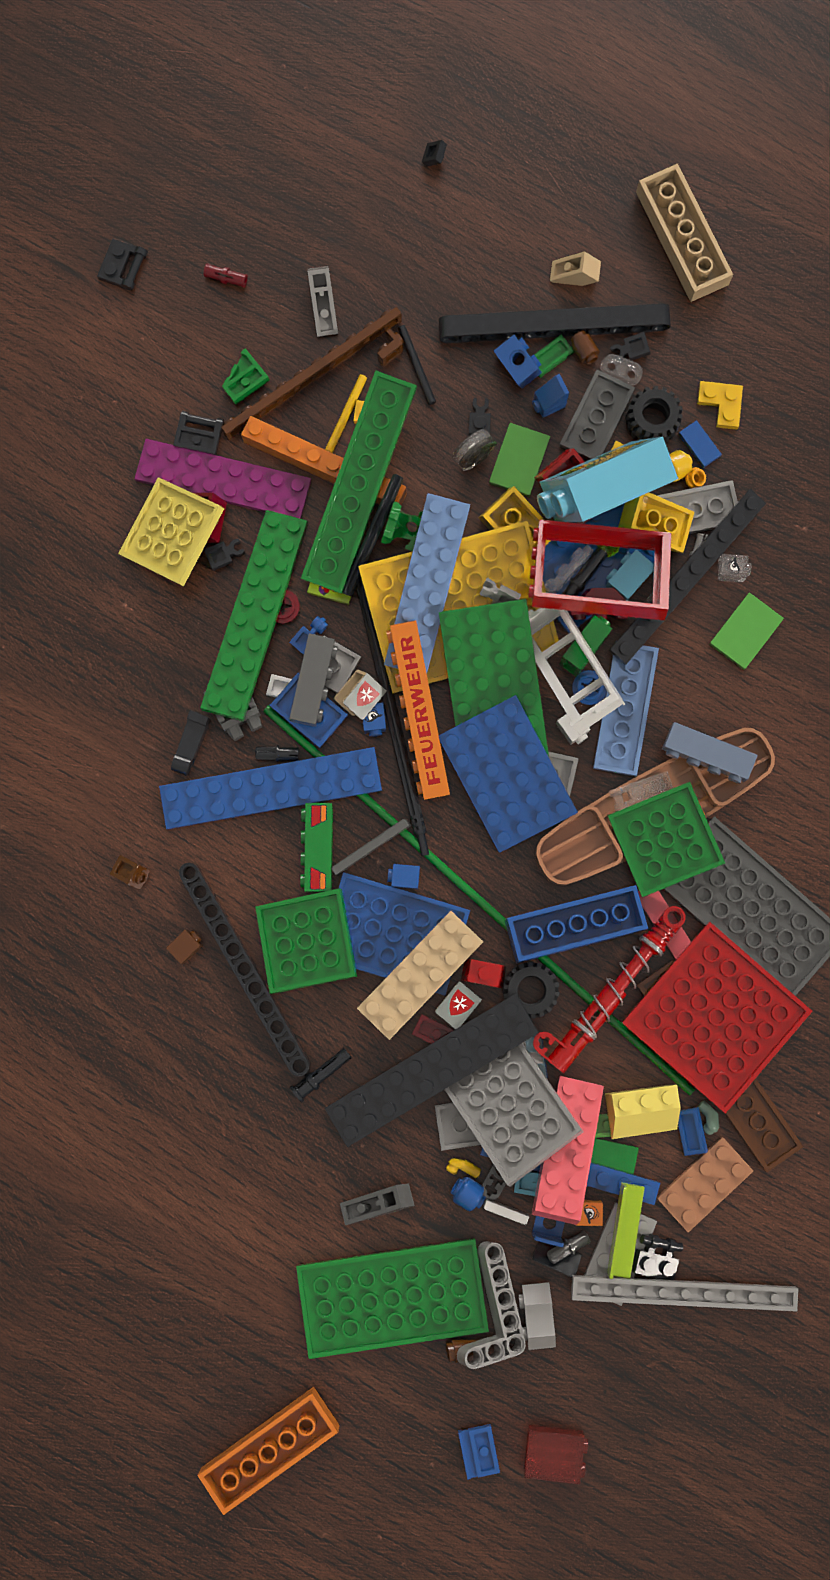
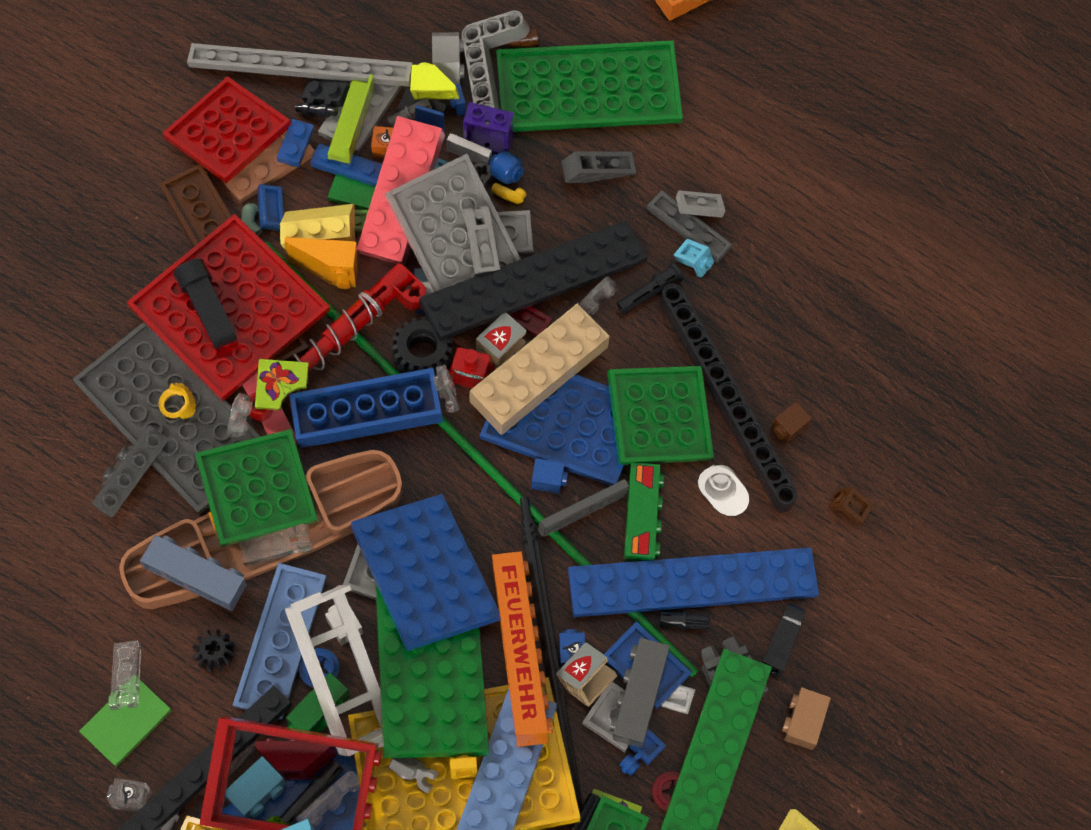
camera: 175 degrees right, 15 degrees down
(170, 674) = (806, 718): none -> medium nougat brick
(246, 876) = (723, 490): none -> white piece
(275, 1169) = (700, 203): none -> light grey plate
(279, 1112) = (695, 256): none -> medium azure bracket
(285, 1147) = (688, 225): none -> dark grey tile
(375, 1053) = (603, 290): none -> clear plate
(458, 601) = (463, 767): none -> yellow plate
(485, 1099) = (481, 240): none -> light grey plate
(492, 1232) = (499, 121): none -> dark purple window
(505, 945) = (447, 388): none -> clear plate
(523, 1267) = (458, 104): none -> blue plate
(551, 1277) = (431, 83): none -> neon yellow slope
(622, 1071) = (328, 260): none -> light orange slope
(660, 936) = (277, 380): none -> lime tile
(675, 687) = (208, 644): none -> black gear
(677, 1201) = (295, 143): none -> blue plate
(690, 902) = (240, 410): none -> clear plate
(737, 912) = (180, 389): none -> yellow piece
(737, 1009) = (195, 281): none -> black beam
(746, 1211) = (227, 129): none -> red plate
(753, 666) = (125, 675): none -> clear plate
(782, 848) = (128, 470): none -> dark grey bracket

